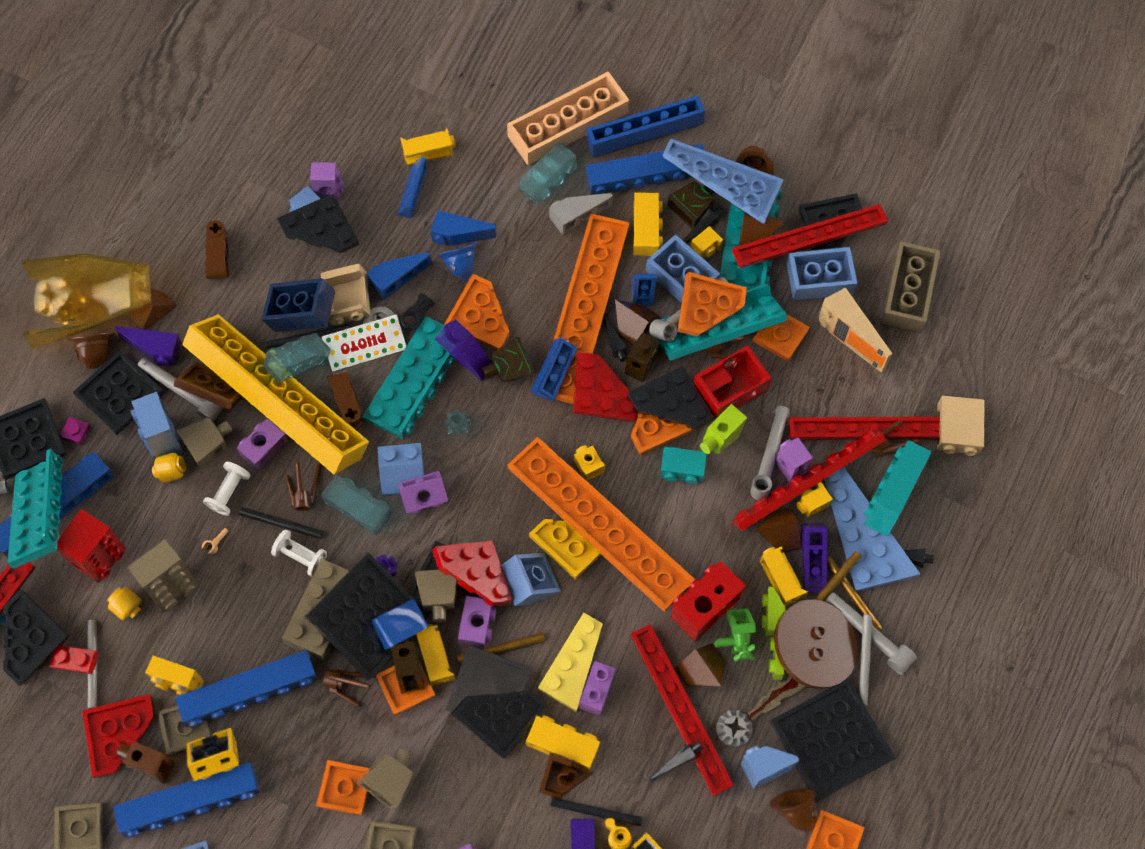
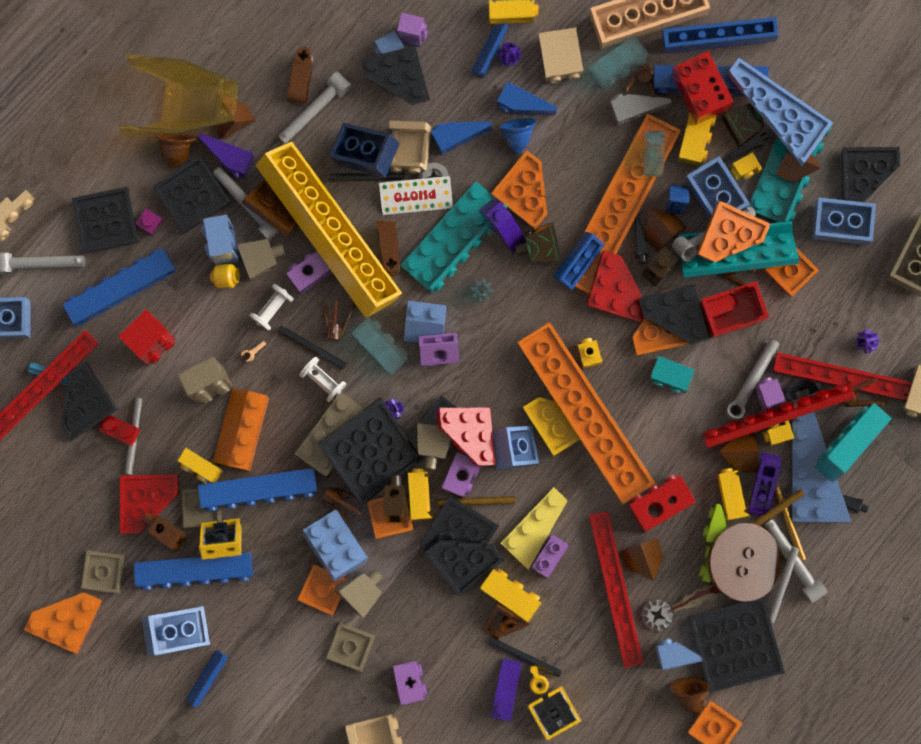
camera: 20 degrees right, 15 degrees up
(35, 511) = (107, 296): teal bracket -> none
(58, 300) = (152, 96): clear yellow brick -> none
(124, 603) = (168, 390): yellow head -> none
(216, 628) = (241, 429): none -> orange slope
(256, 253) = (337, 86): none -> light grey piece
(296, 357) = (353, 199): clear light blue brick -> none
(348, 732) = (335, 546): none -> medium blue brick
(399, 623) = (395, 465): blue piece -> none
(417, 311) = (468, 177): black connector -> none
(433, 186) = (509, 54): none -> dark purple gear
(487, 177) = (561, 55): none -> tan panel
(578, 178) = (644, 74): none -> reddish brown plant
(607, 247) = (654, 153): none -> clear light blue slope
(643, 170) = (702, 87): none -> red piece
(686, 754) = (609, 630): piece -> none
(723, 431) = (713, 354): lime torso -> none
(742, 625) = (683, 537): bright green piece -> none
(756, 158) = (813, 94): reddish brown piece -> none
(809, 236) = (843, 183): red plate -> none
(835, 444) = (812, 387): none -> black helmet
(851, 327) = (854, 276): tan slope -> none
(880, 386) = (867, 341): none -> dark purple gear

